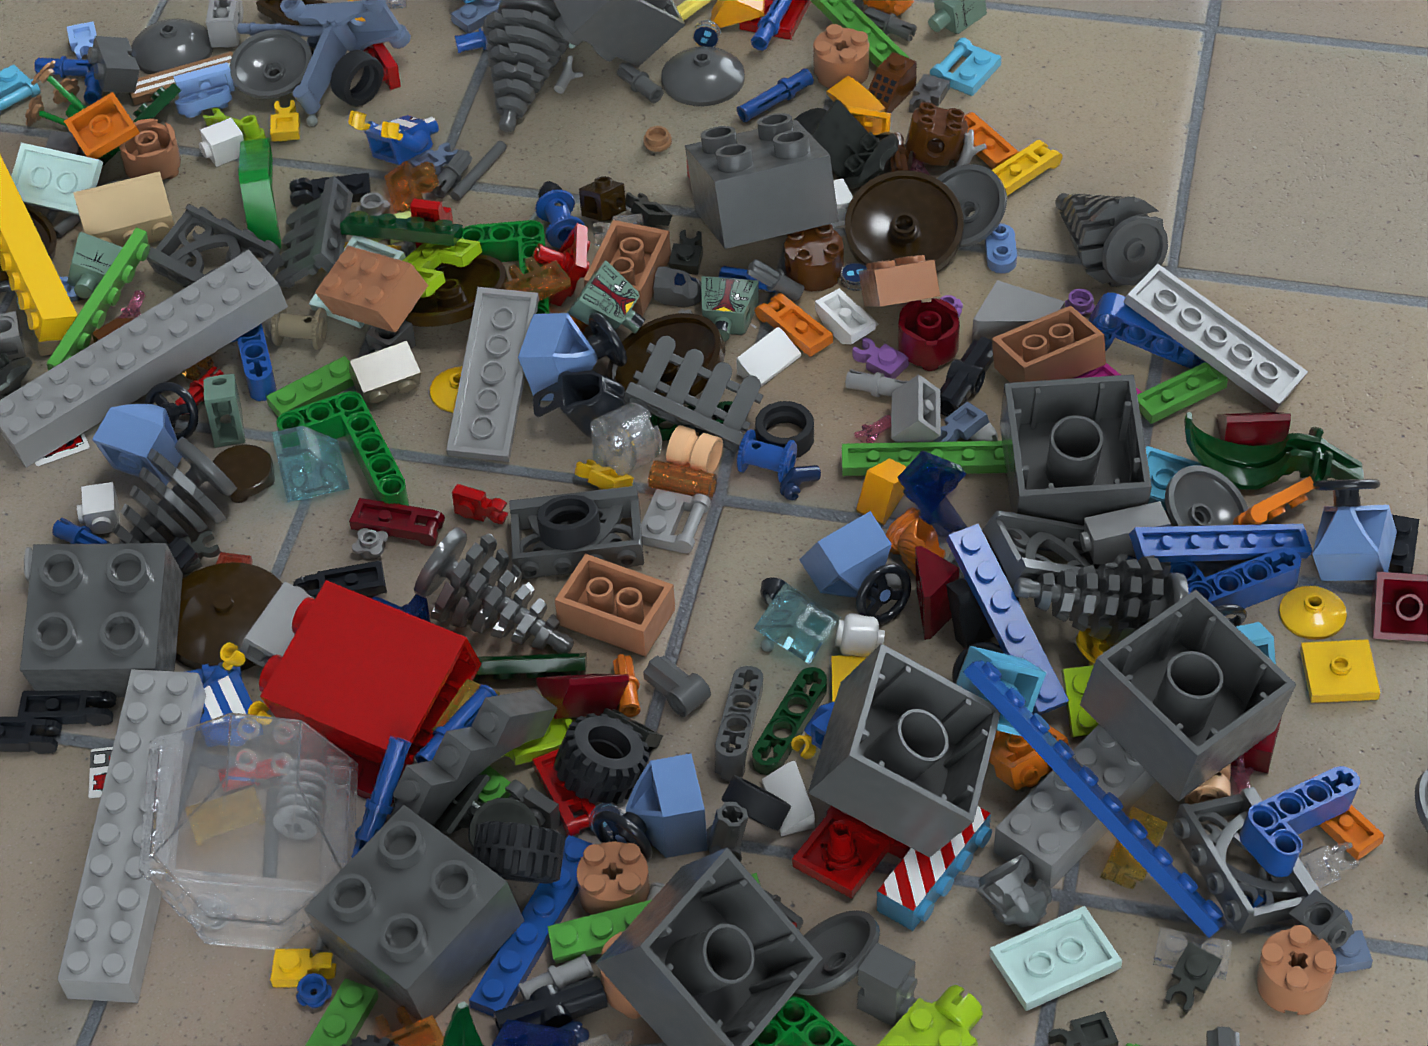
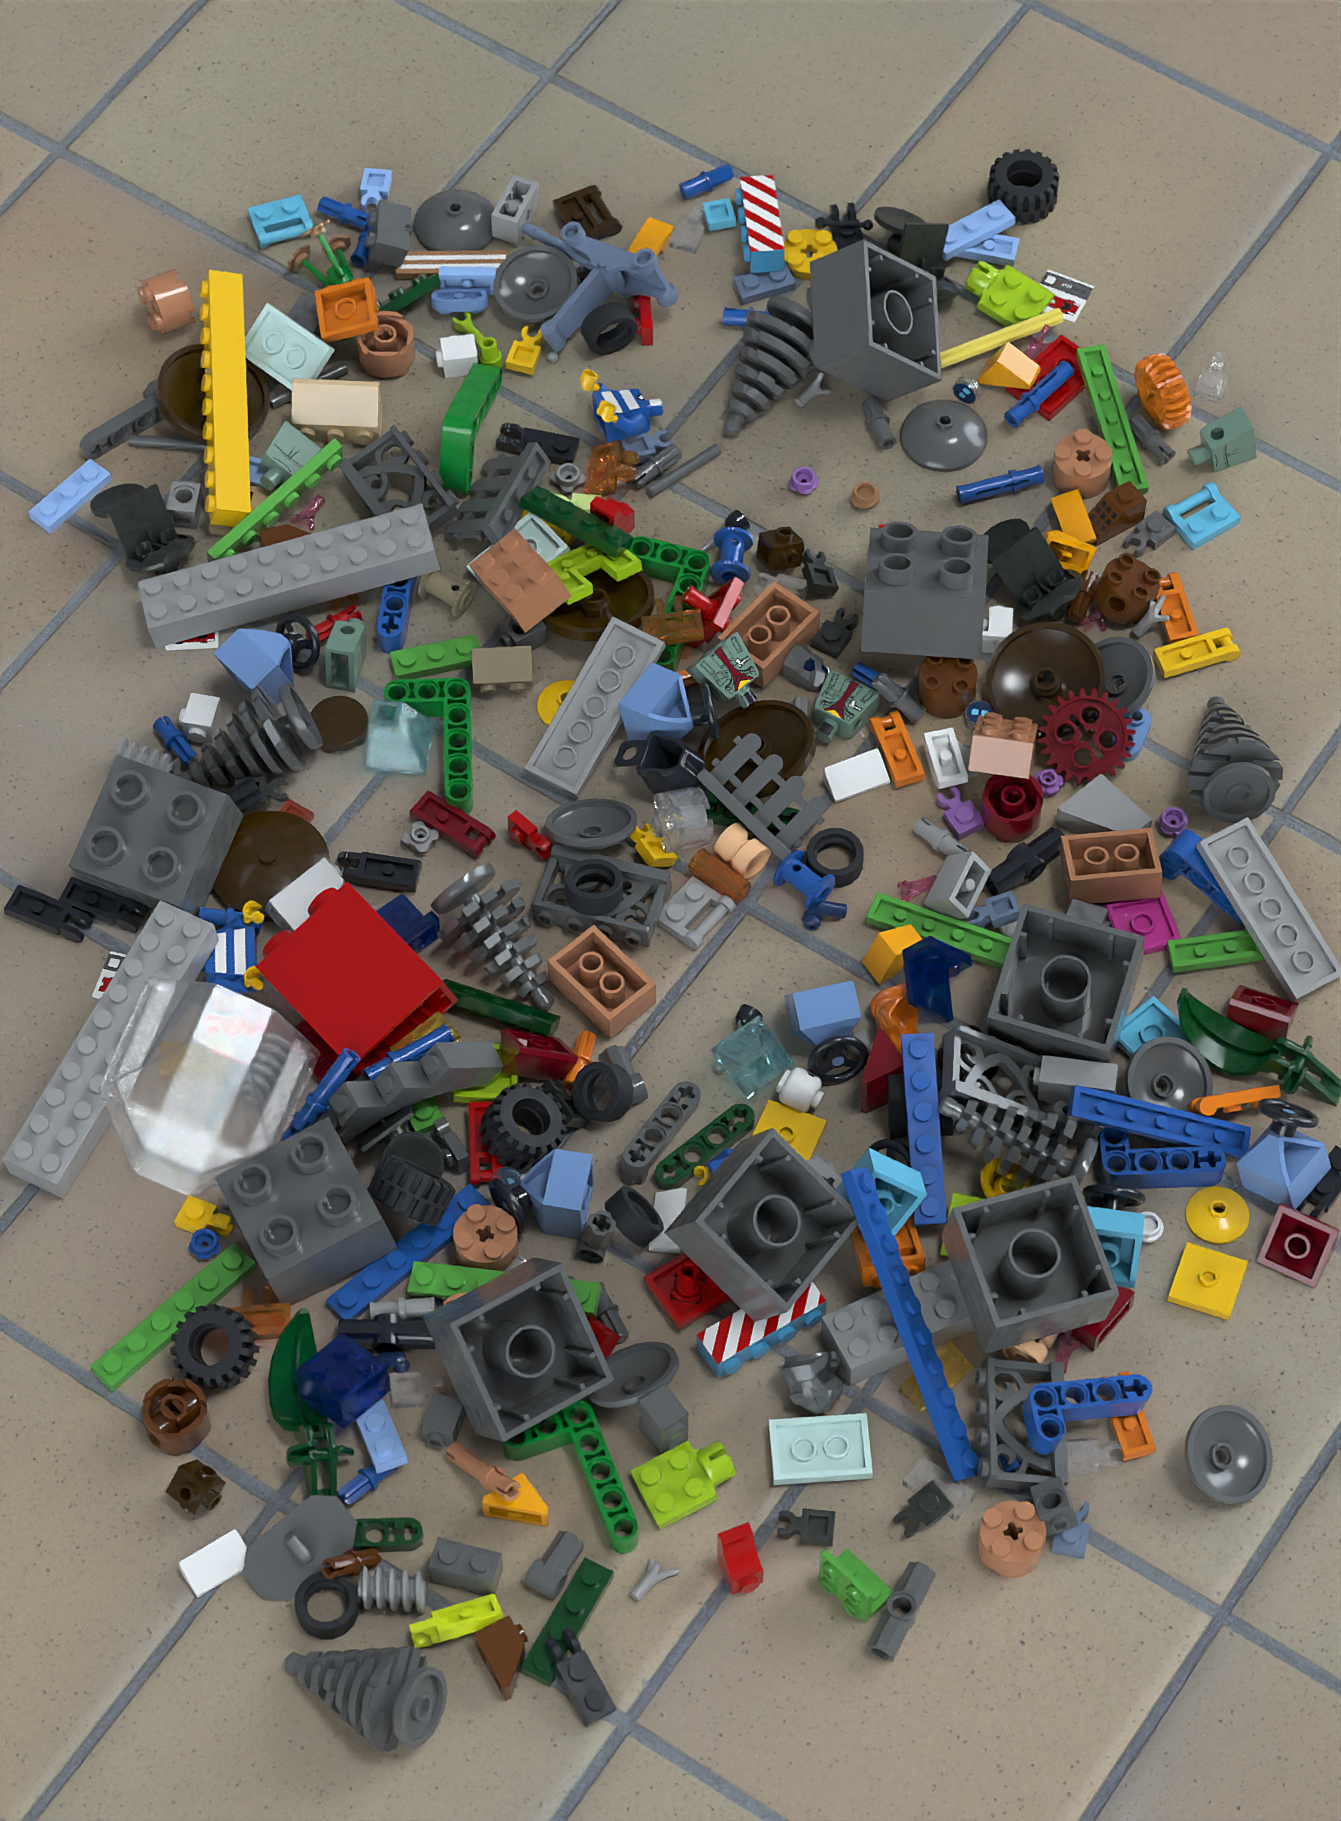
camera: 20 degrees right, 10 degrees up
(538, 474) = (591, 824): none -> dark grey dish
(594, 144) = (803, 474): none -> medium lavender plate
(689, 701) = (583, 1091): none -> black tyre
(981, 236) = (1109, 721): none -> dark red gear

